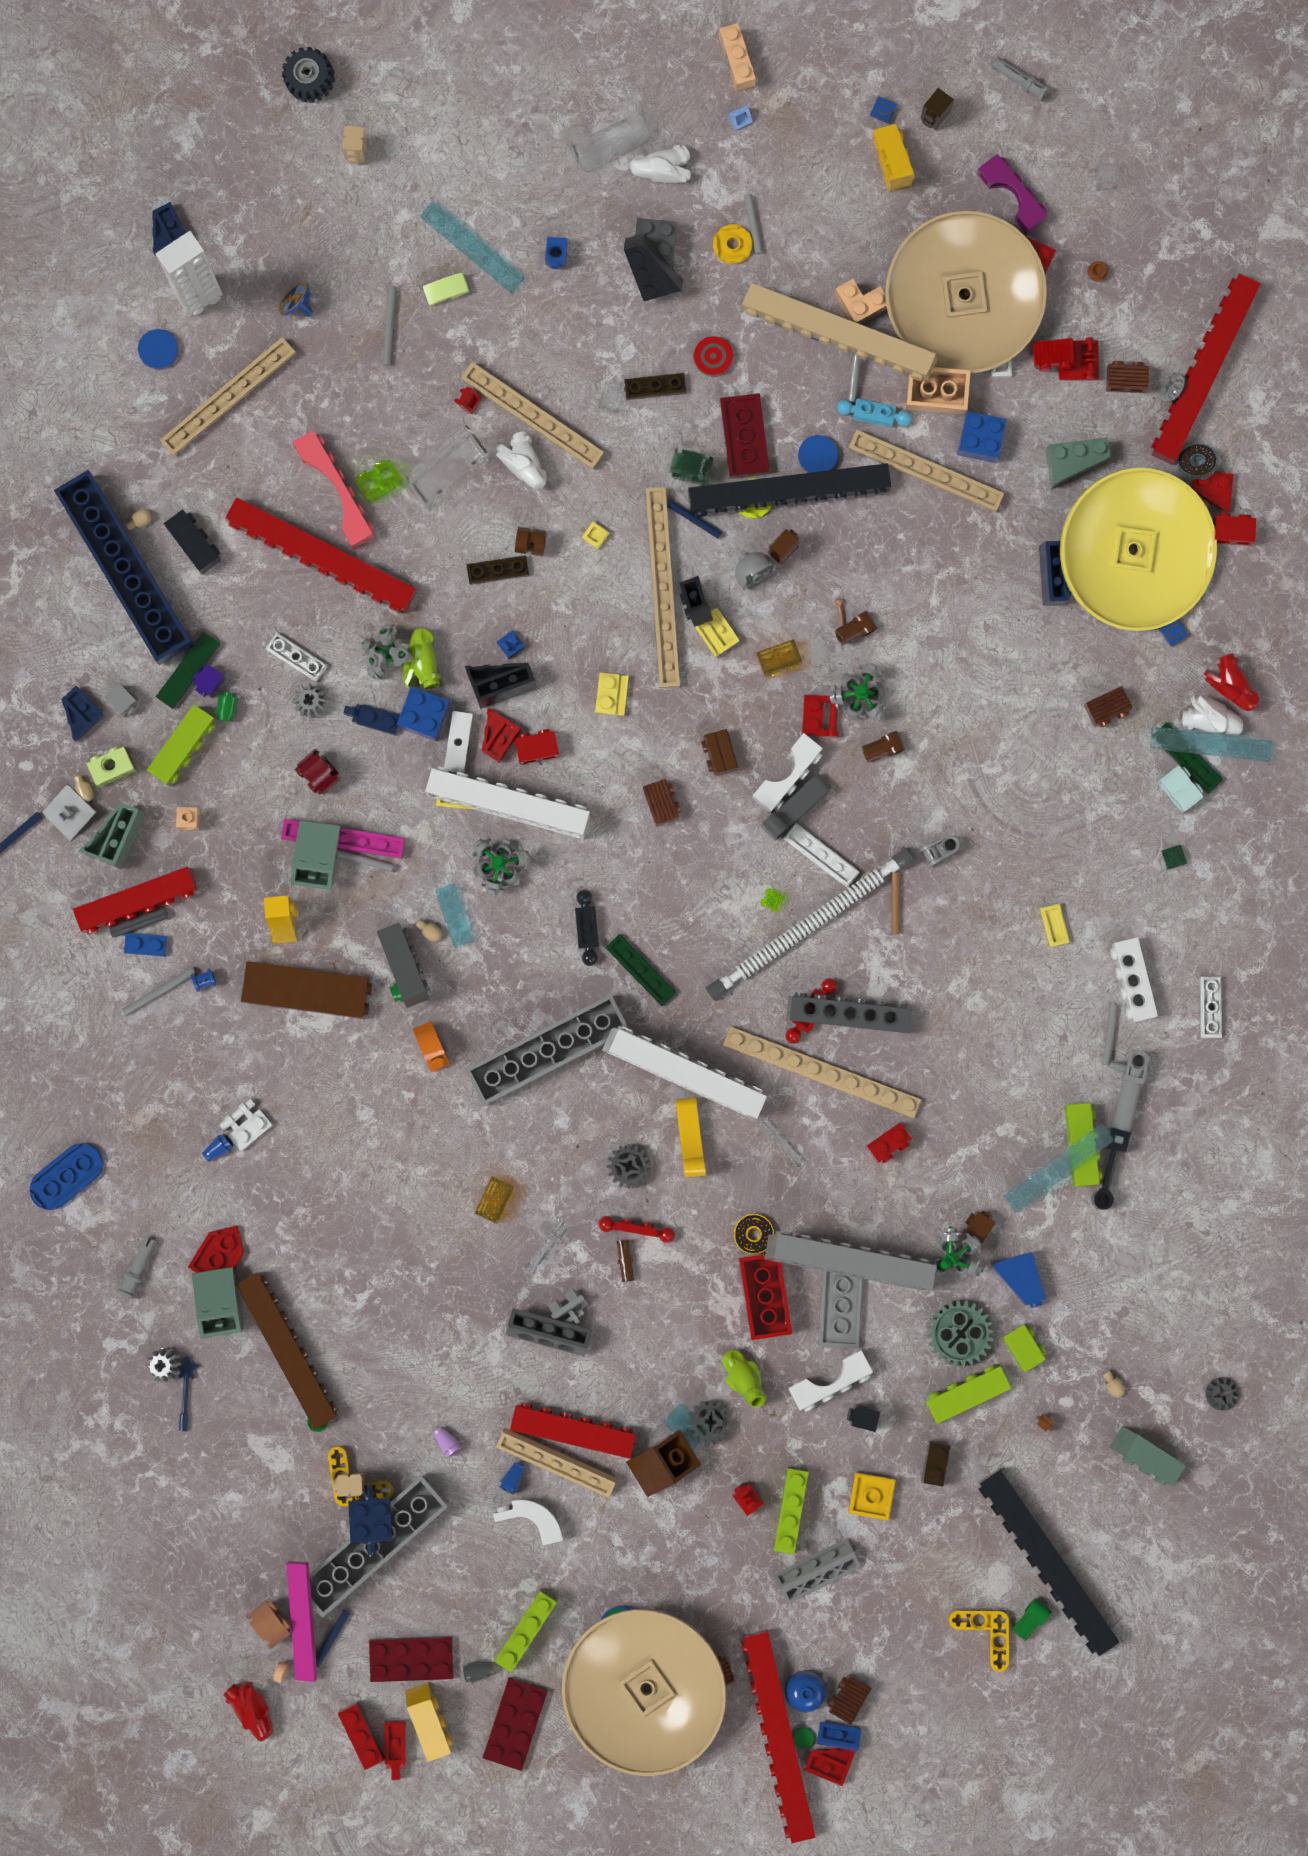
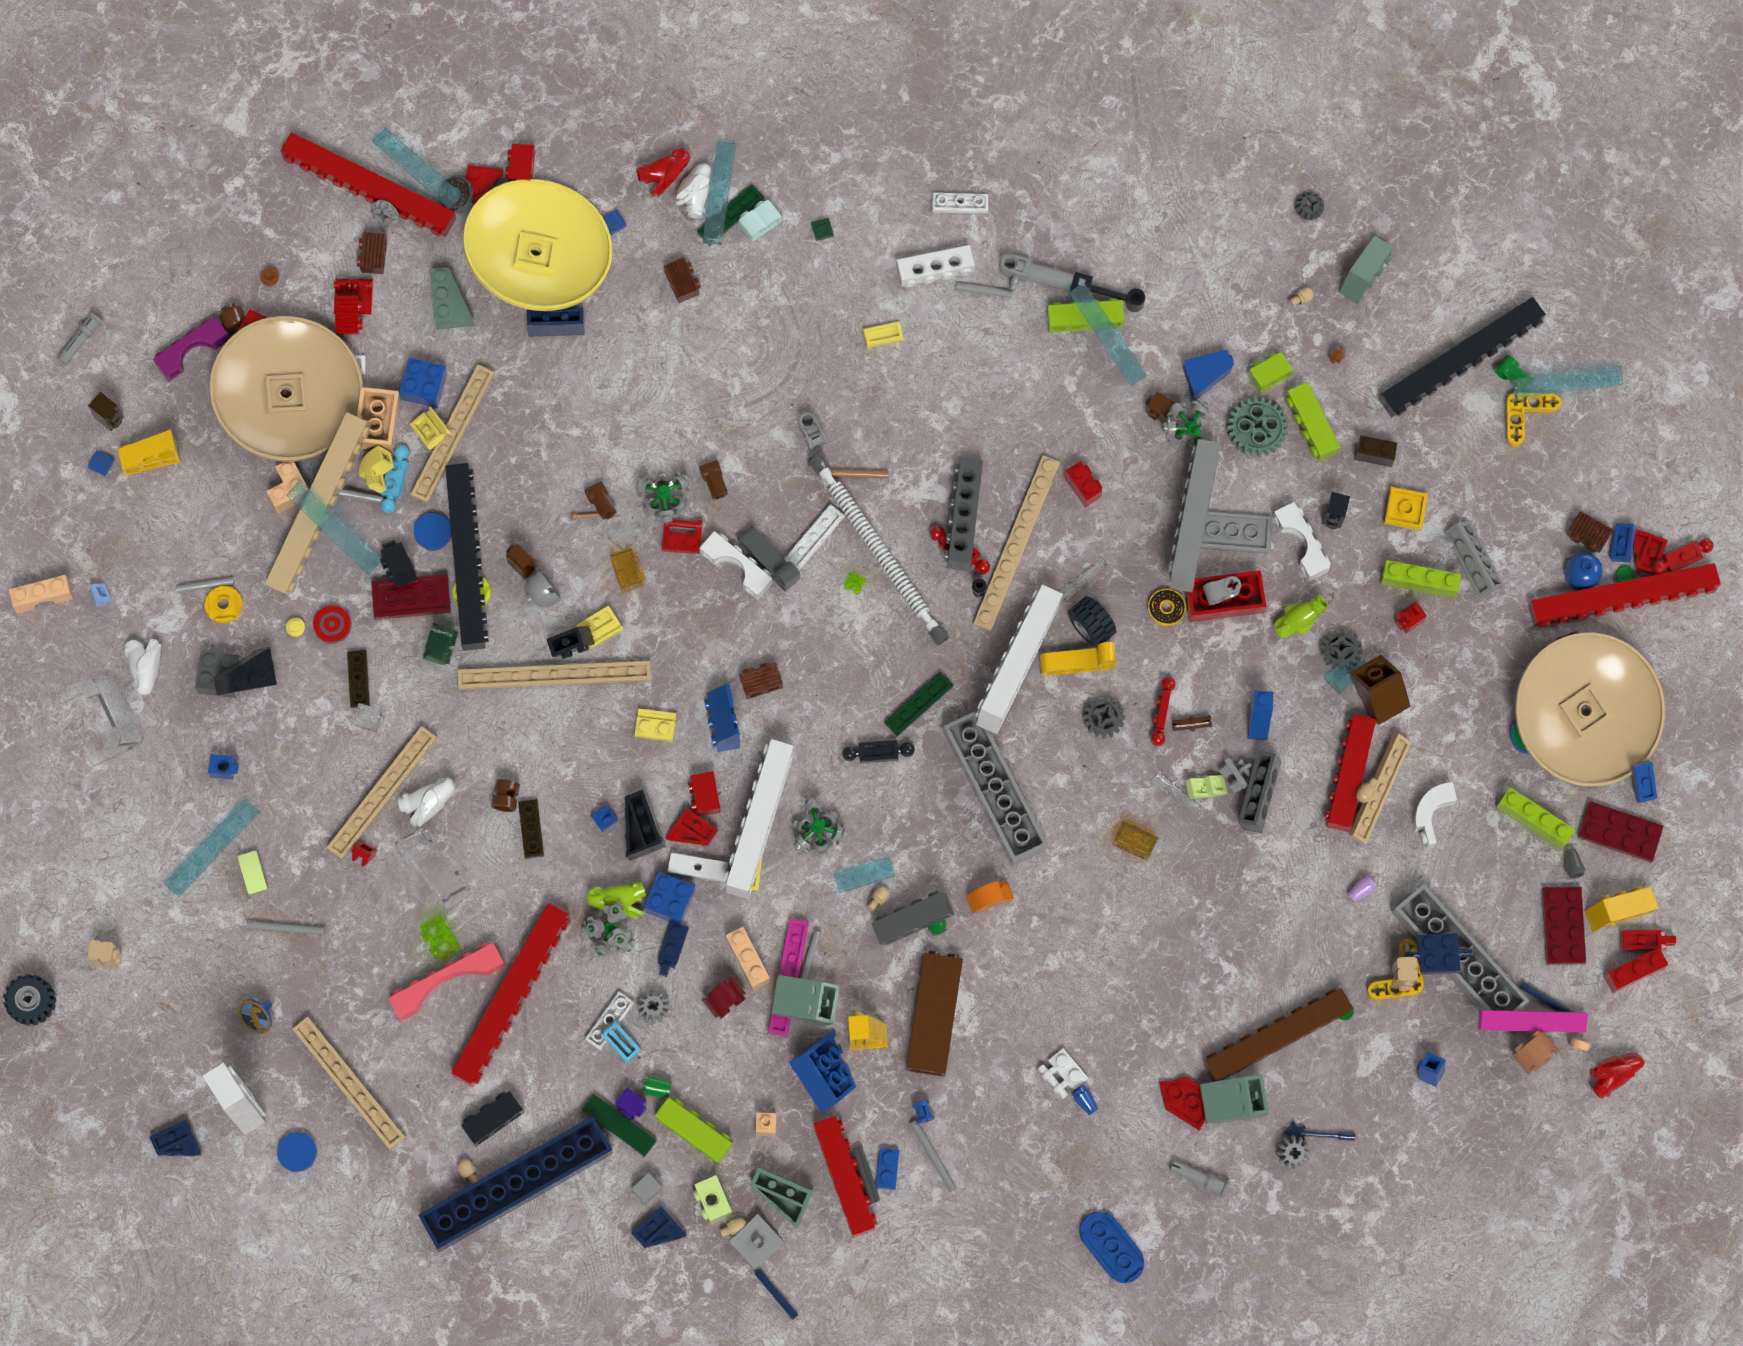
camera: 90 degrees left, 10 degrees down
(243, 877) = (824, 1072): none -> blue wedge
(251, 1512) = (1431, 1069): none -> blue brick
(284, 656) = (608, 1029): none -> medium azure tile
(361, 794) = (748, 958): none -> light nougat arch
(512, 1479) = (1395, 829): blue cone -> none
(549, 1446) = (1366, 791): none -> tan cylinder
(554, 1275) = (1206, 787): none -> yellowish green slope
(568, 1751) = (1644, 781): none -> blue plate
(595, 535) = (501, 737): light yellow tile -> none
(616, 763) = (722, 719): none -> blue wedge
(631, 1333) = (1260, 714): none -> blue slope
(695, 520) = (489, 645): dark blue bar -> none
(709, 318) = (295, 627): none -> light yellow plate
(720, 752) = (715, 626): reddish brown brick -> none
(730, 1151) = (1092, 621): none -> black wheel
(764, 1287) = (1218, 590): none -> light grey piece
(772, 1027) = (978, 592): none -> black pin
(778, 418) = (397, 563): none -> black brick
(812, 349) = (333, 527): none -> clear light blue tile
(824, 1802) = (1682, 556): none -> red plate
(884, 389) = (374, 466): none -> light yellow brick
(930, 446) = (430, 428): none -> light yellow plate
(1021, 1679) = (1567, 382): none -> clear light blue tile
(1049, 234) = (231, 317): none -> reddish brown head
(1226, 419) = (417, 168): none -> clear light blue tile

